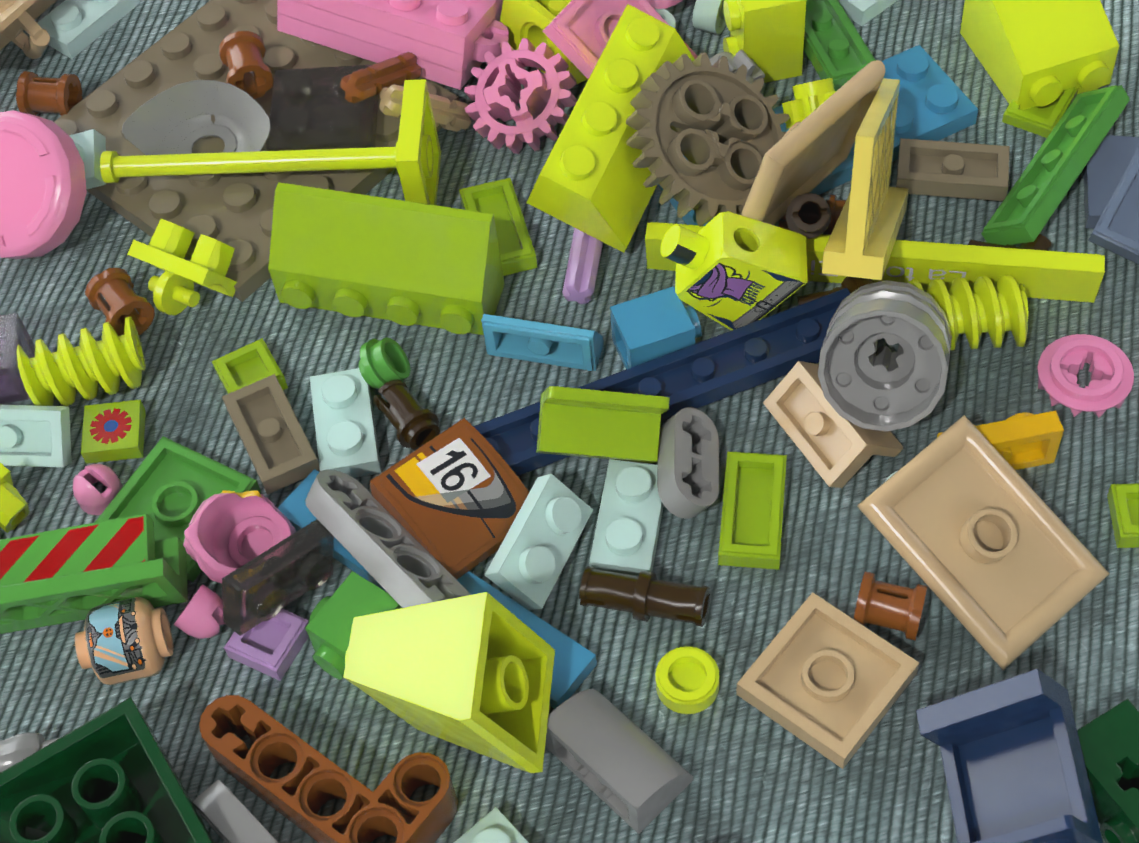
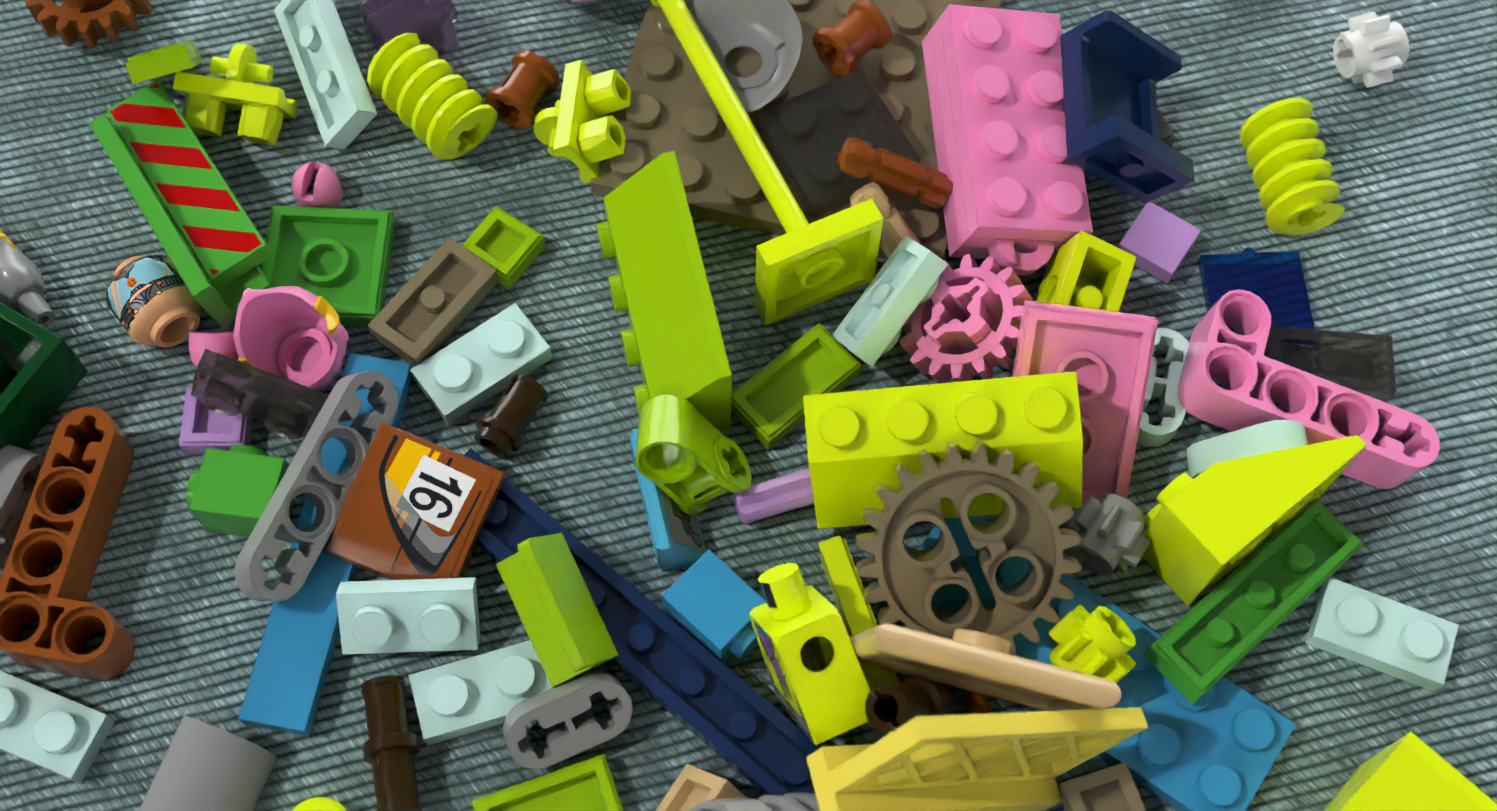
camera: 55 degrees right, 10 degrees up
(113, 431) = (384, 165): lime tile -> none
(383, 362) = (556, 362): bright green plate -> none
(459, 674) = (167, 621): neon yellow slope -> none
(476, 127) = (889, 300): none -> light aqua plate
(521, 291) = (687, 454): none -> lime piece

